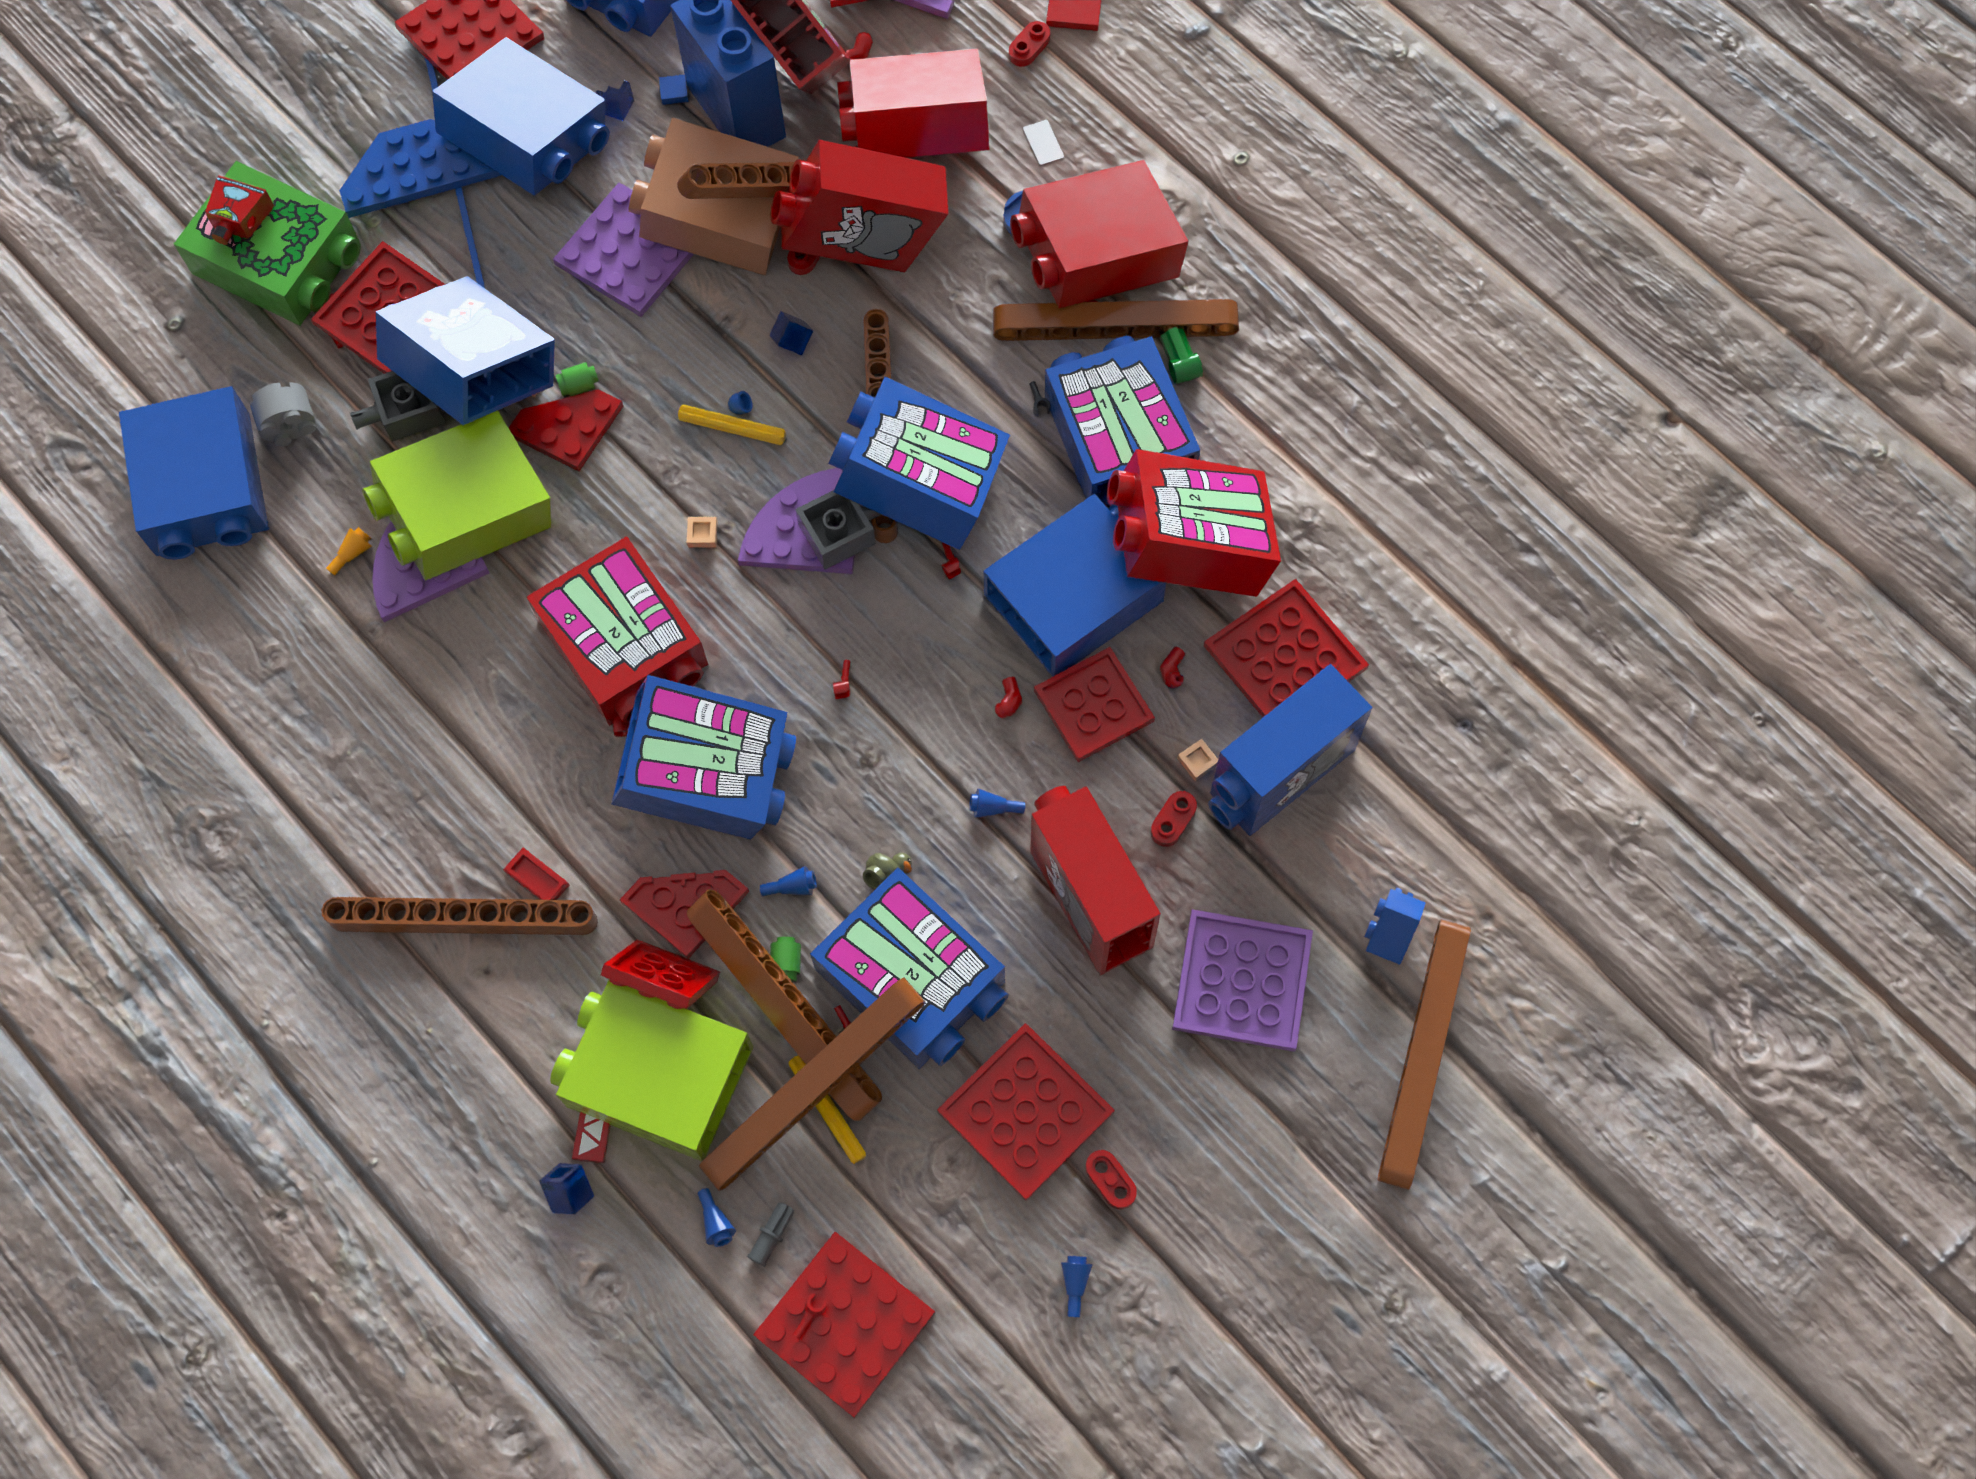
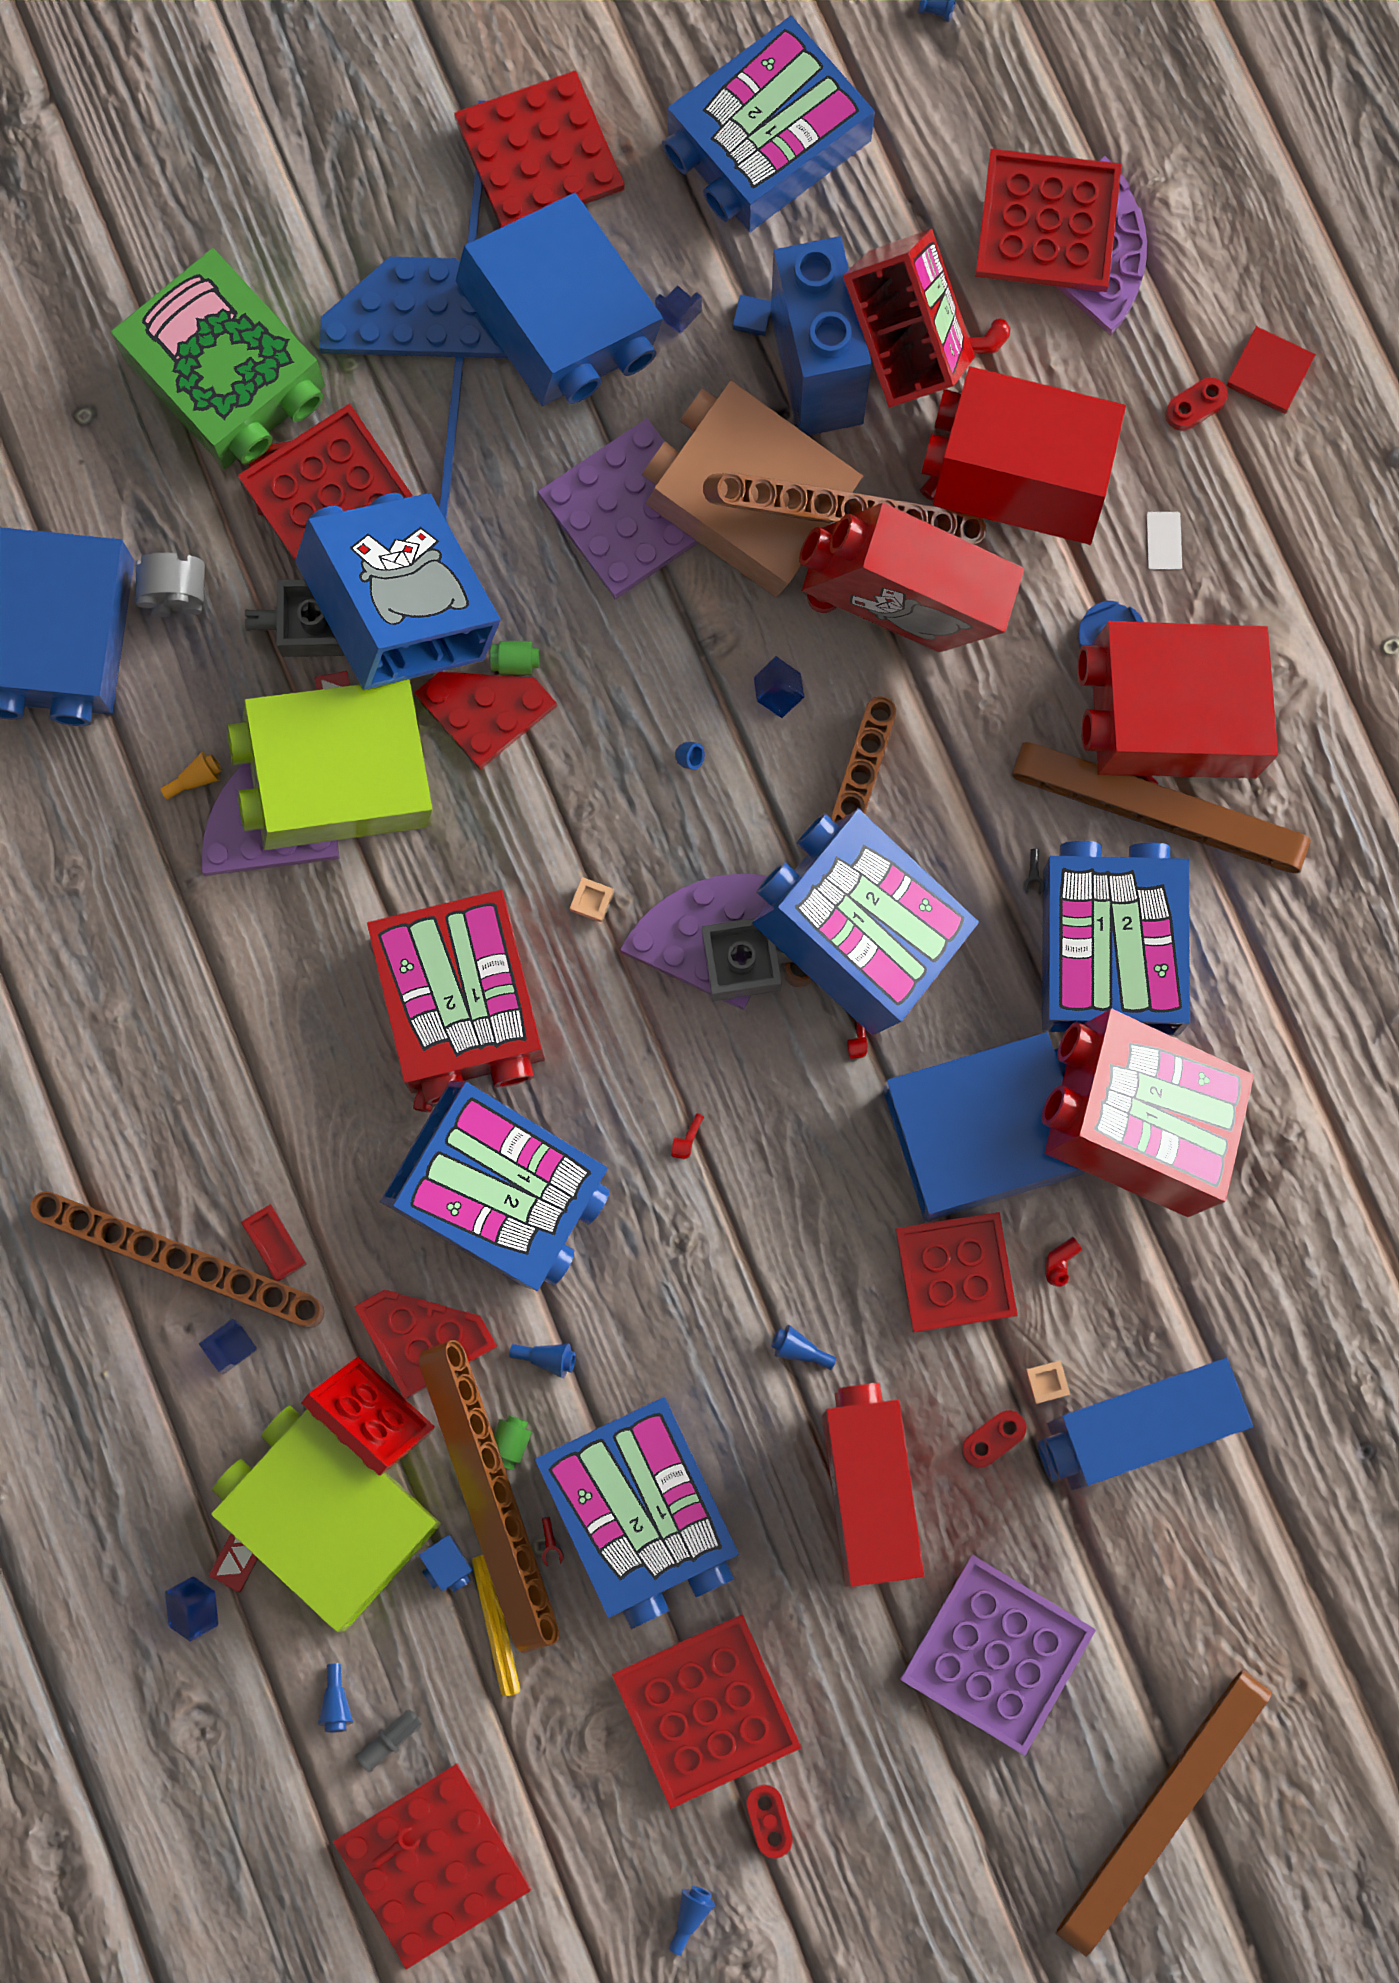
camera: 20 degrees right, 10 degrees up
(236, 209) = (193, 317): red torso -> none
(525, 969) = (228, 1346): none -> clear blue panel
(731, 424) = (671, 777): yellow axle -> none
(767, 1073) = (446, 1565): none -> blue brick
(812, 1084) = (487, 1602): dark orange beam -> none
(881, 866) = (651, 1383): olive animal -> none
(1011, 700) = (866, 1232): red arm -> none
(1182, 363) = (1218, 892): green piece -> none
(1282, 647) = (1195, 1295): red plate -> none
(1395, 925) = (1188, 1661): blue brick -> none

